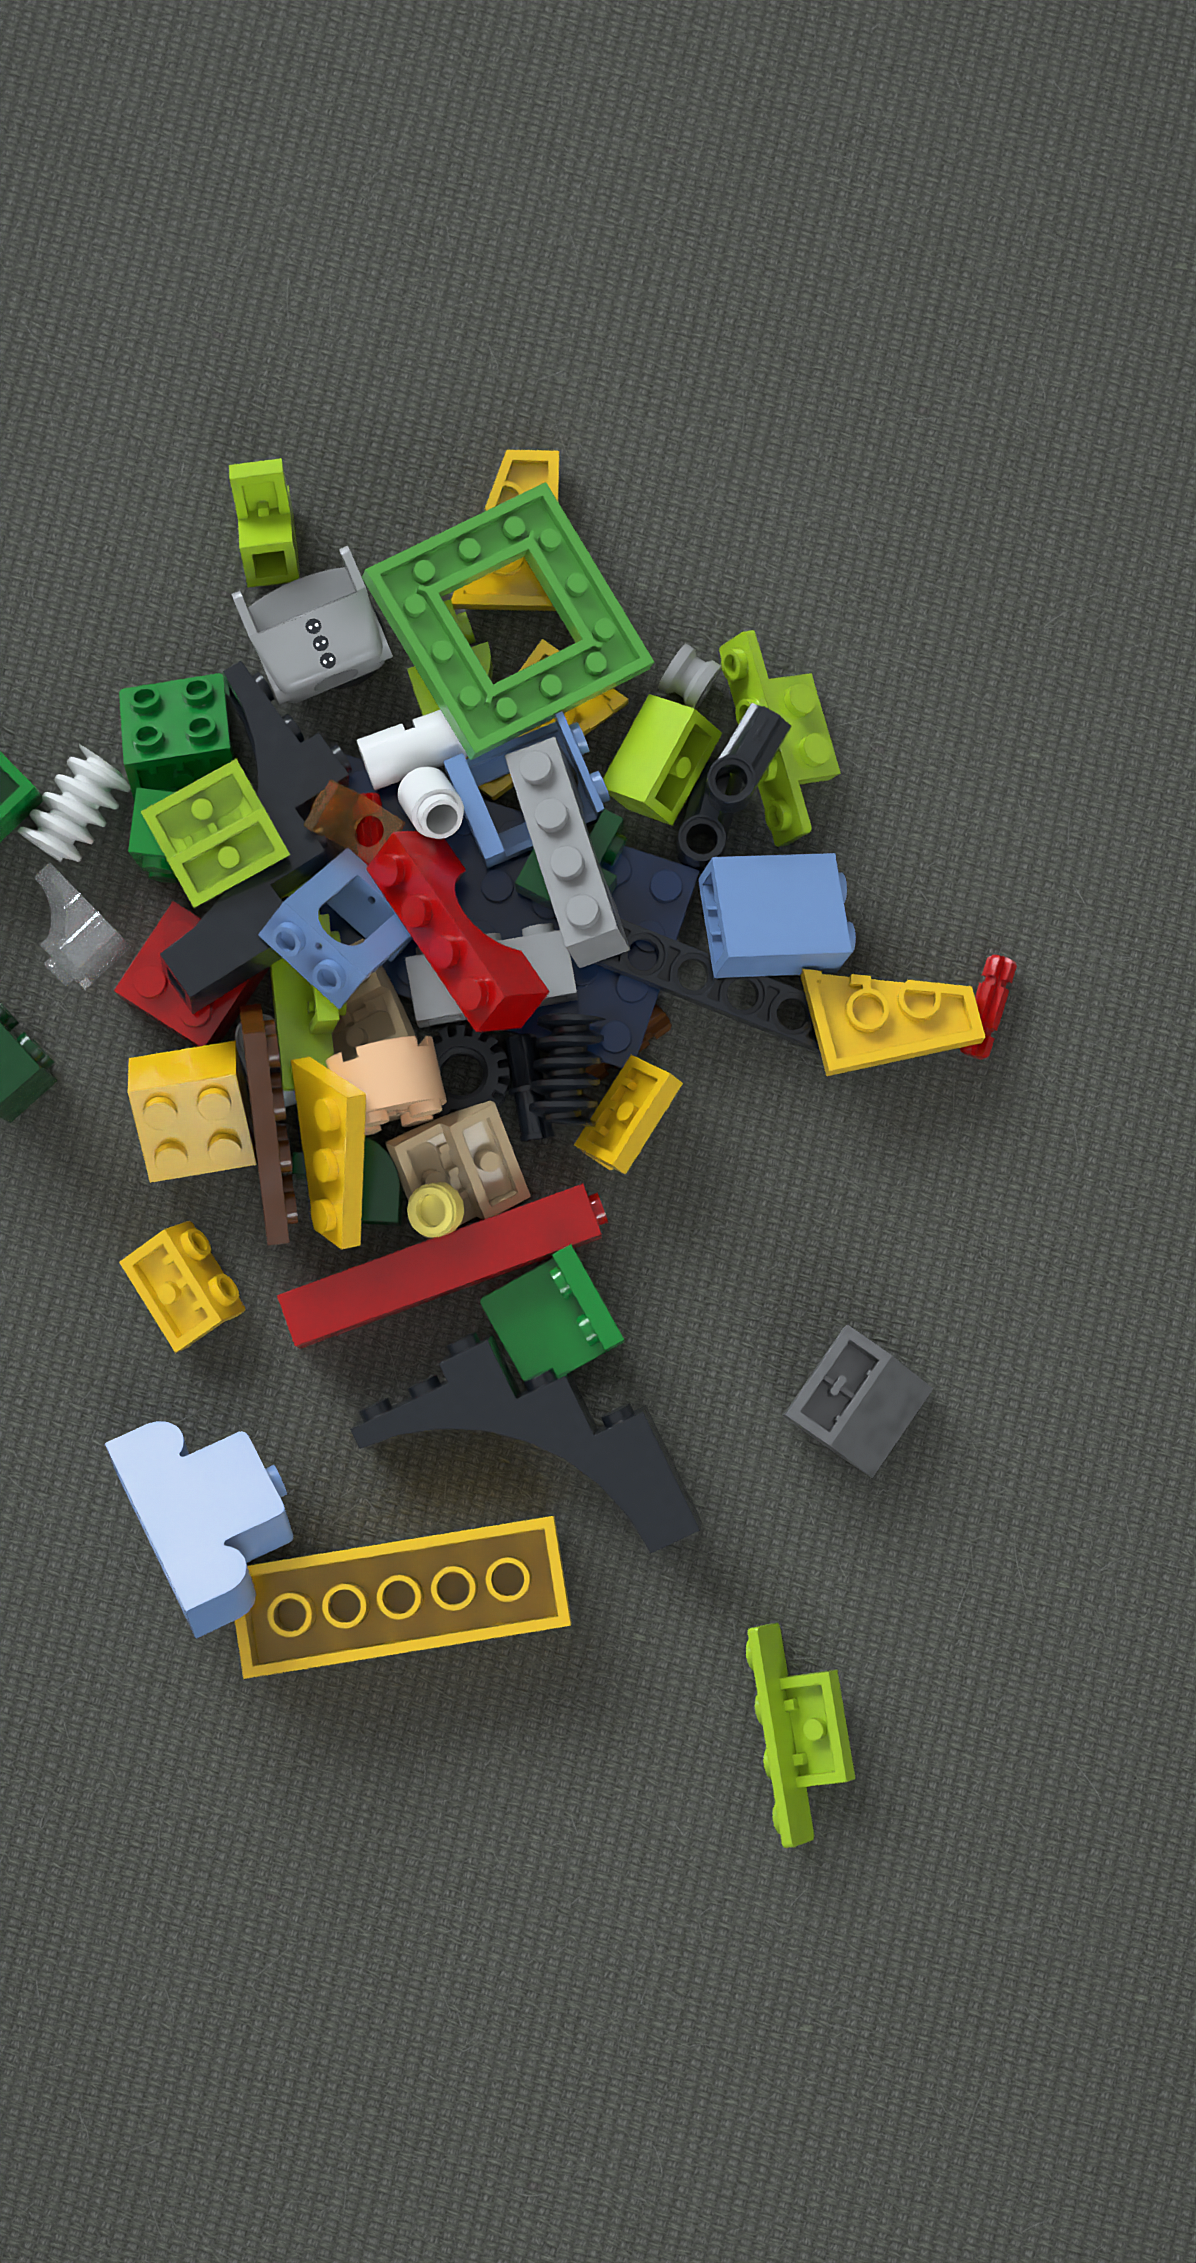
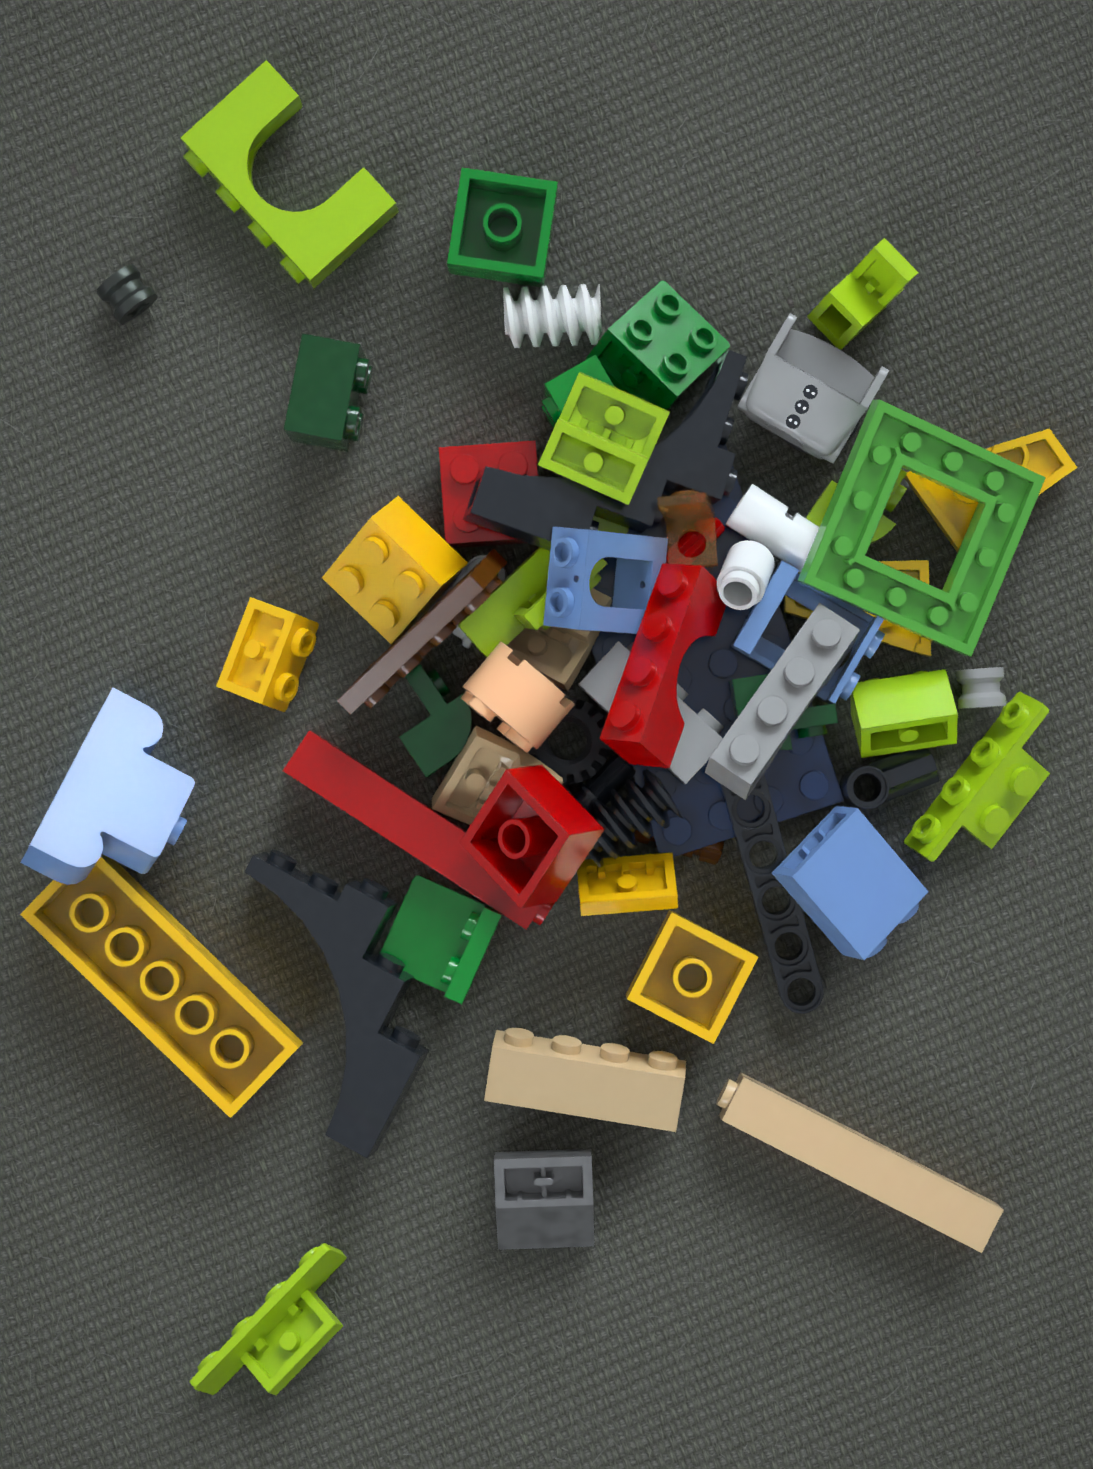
camera: 50 degrees right, 5 degrees up
(79, 937) = (462, 391): clear arch -> none
(333, 1149) = (441, 695): yellow wing -> none
(435, 1209) = (454, 798): light yellow tile -> none
(519, 1161) = (531, 836): none -> red brick
(747, 756) = (952, 777): black piece -> none
(754, 1118) = (691, 976): none -> yellow brick
(776, 1282) = (586, 1079): none -> tan brick
(882, 1021) = (831, 1016): yellow wing -> none
(991, 1000) = (900, 1082): red axle -> none
(1031, 1094) = (859, 1161): none -> tan brick

